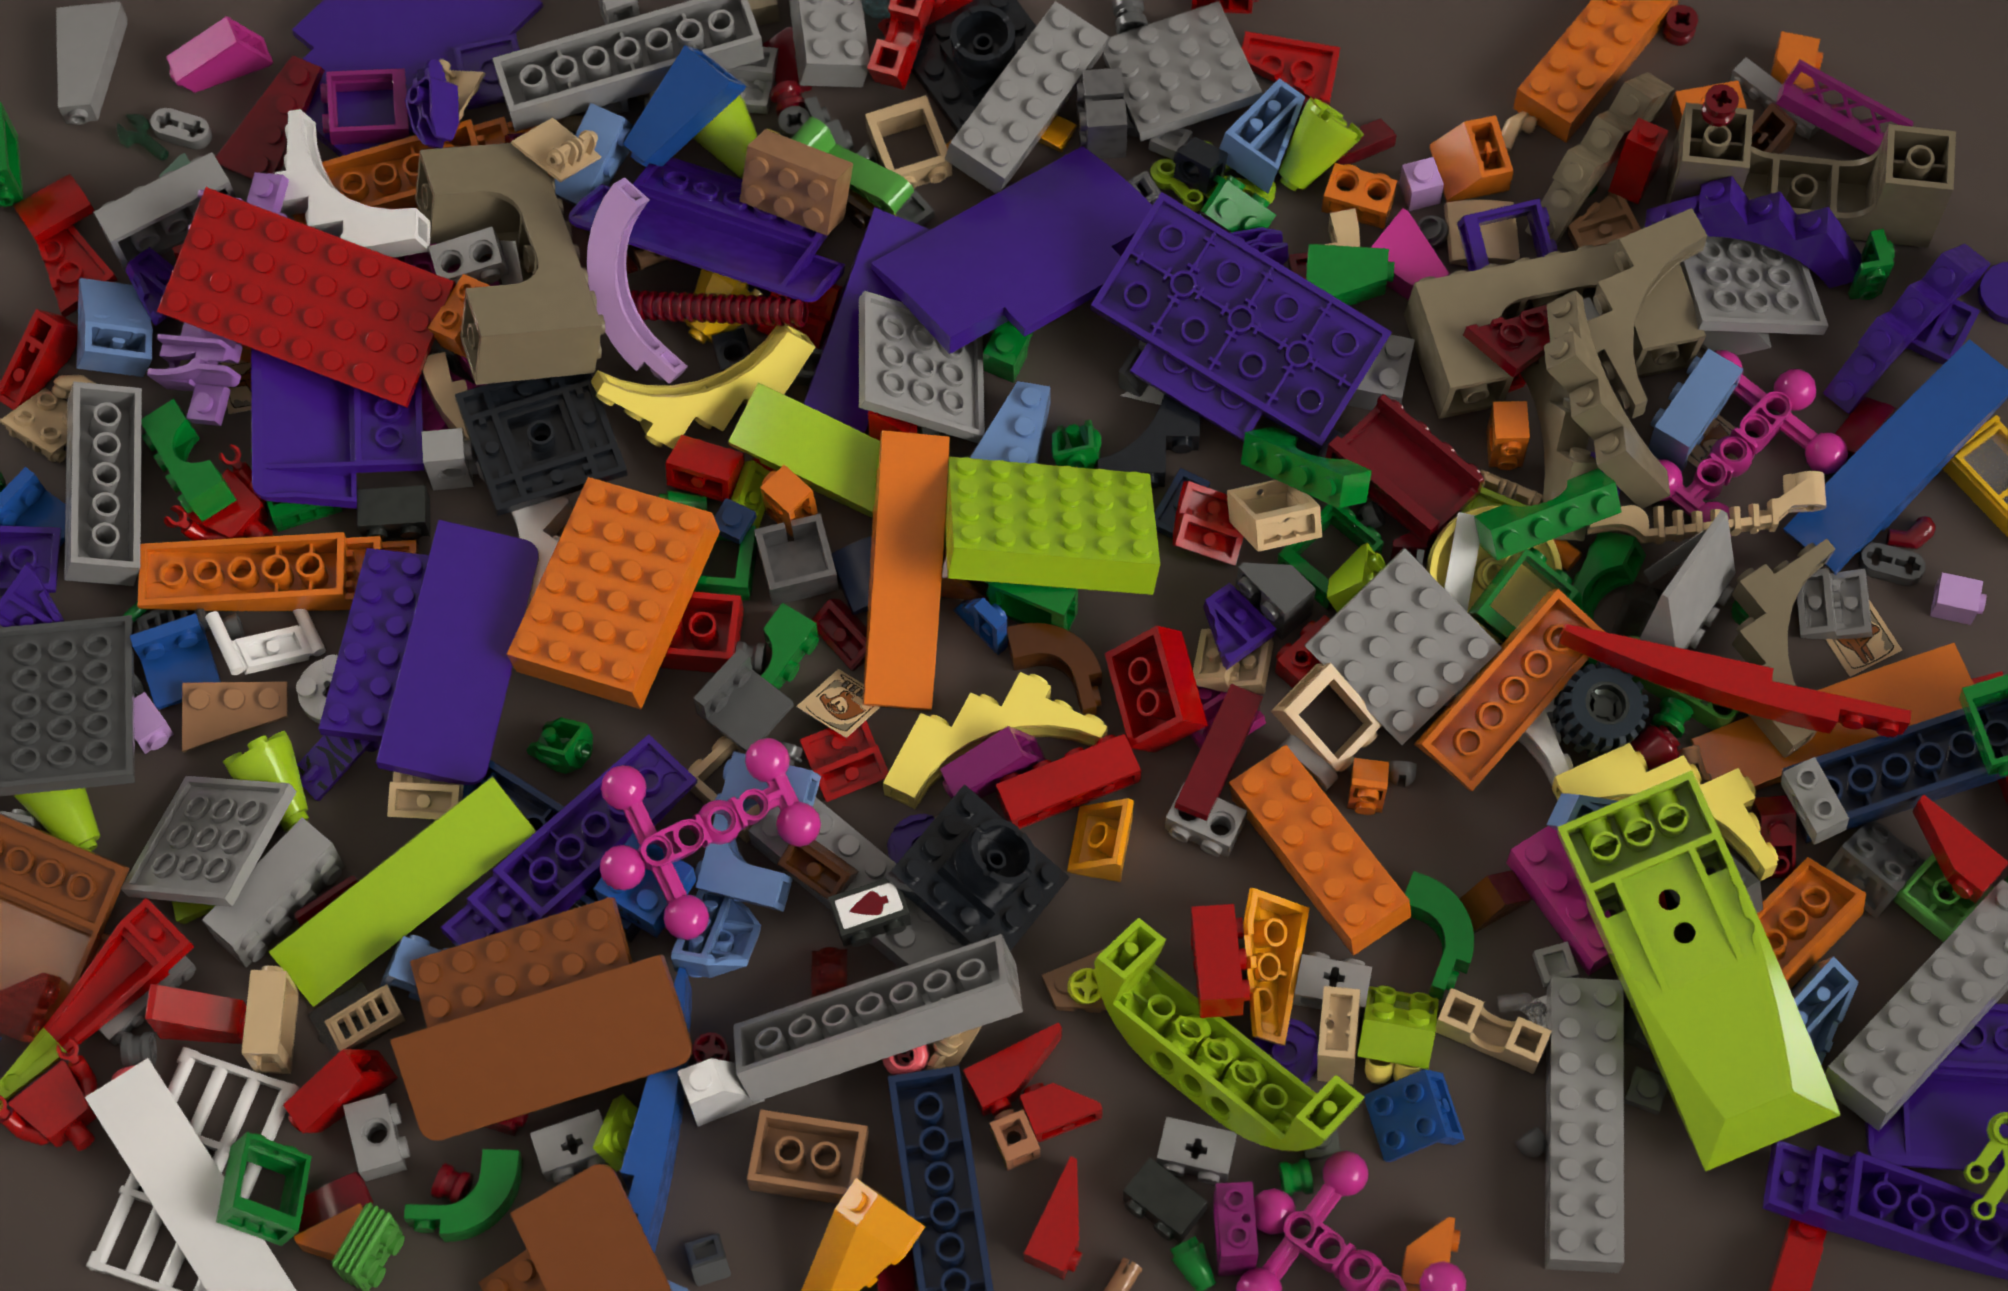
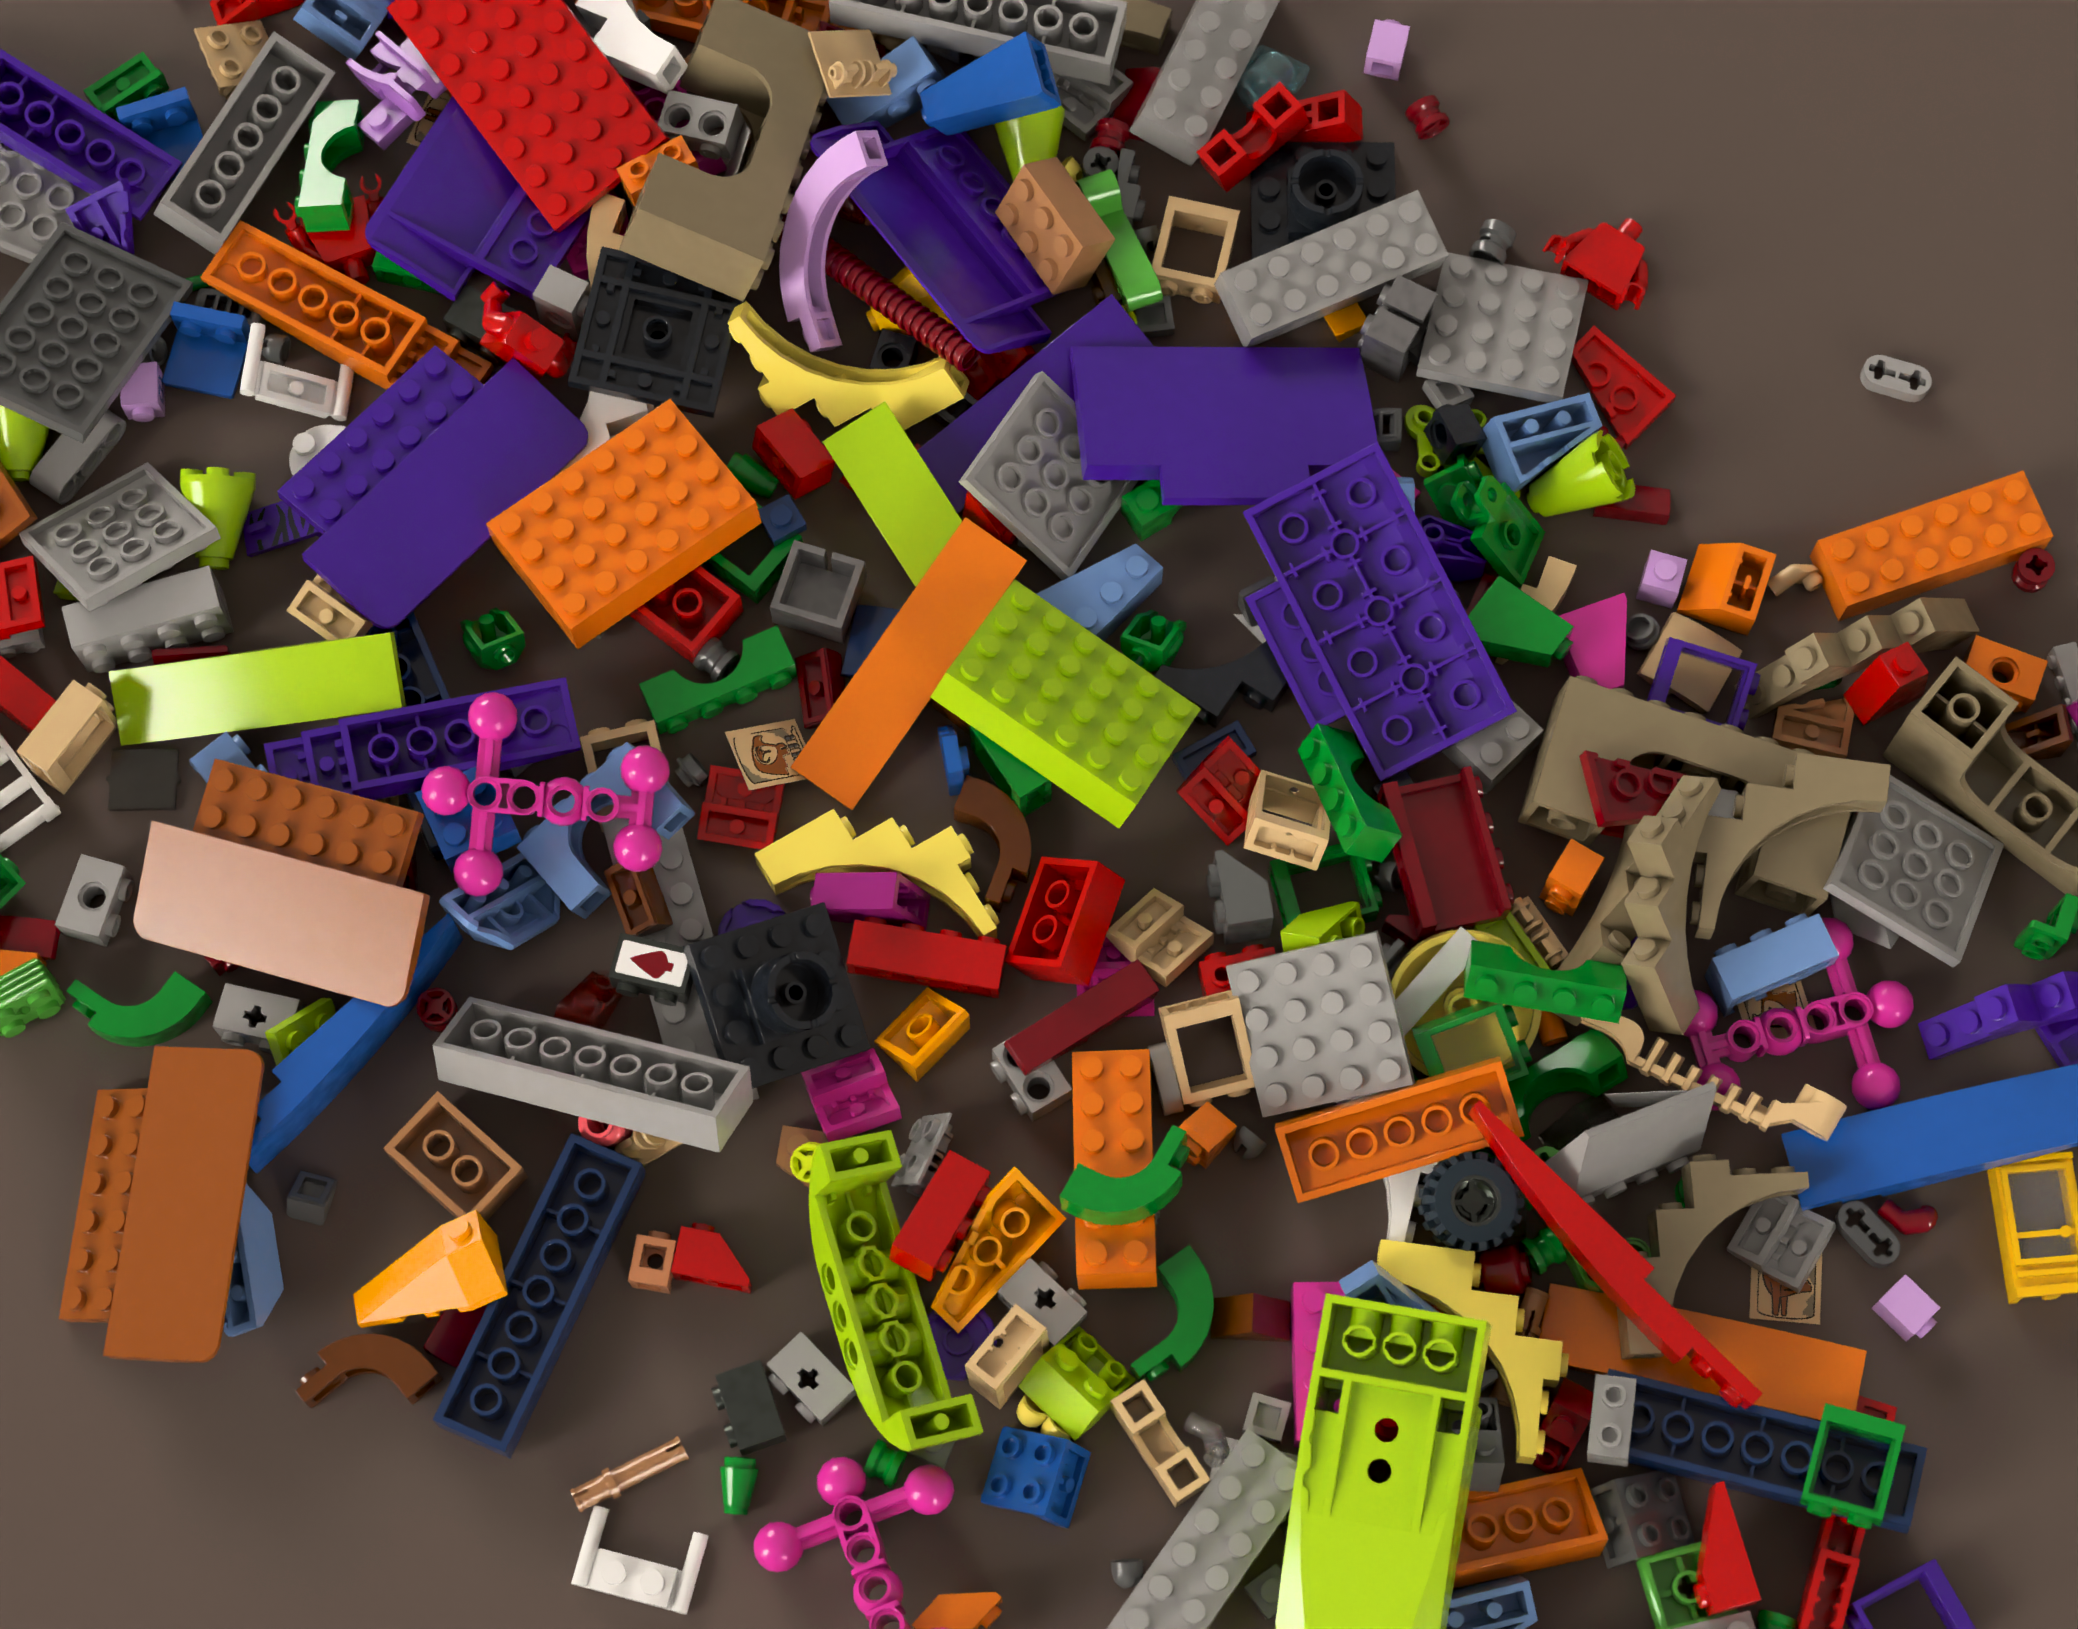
camera: 30 degrees right, 5 degrees up
(64, 384) = (286, 30): tan arm -> none
(123, 810) = (71, 462): none -> light grey beam
(227, 708) = (223, 422): medium nougat wing -> none
(343, 1080) = (92, 831): red slope -> none
(358, 1008) = (181, 799): tan slope -> none
(434, 500) = (523, 338): none -> red torso
(451, 1184) = (131, 985): dark red wheel -> none
(713, 1090) = (405, 1044): white slope -> none
(741, 702) = (672, 699): dark grey bracket -> none
(748, 489) = (824, 502): lime plate -> none
(787, 497) = (847, 527): orange brick -> none
(1004, 1075) = (688, 1197): red slope -> none
(1056, 1237) = (636, 1373): red slope -> none
(1079, 920) = (851, 1095): none -> dark pink slope
(1164, 916) = (927, 1136): none -> light grey hinge
(1235, 625) = (1182, 905): dark purple wing -> none
(1235, 1228) = (793, 1464): magenta window -> none
(1285, 211) = (1503, 527): none -> green plate
(1348, 862) = (1129, 1198): none -> green arch
(1362, 186) = (1588, 557): orange brick -> none
(1723, 112) = (1979, 687): dark red wheel -> none
(1770, 221) = (1971, 823): dark purple arch -> none
(1864, 423) = (1935, 1078): dark red slope -> none

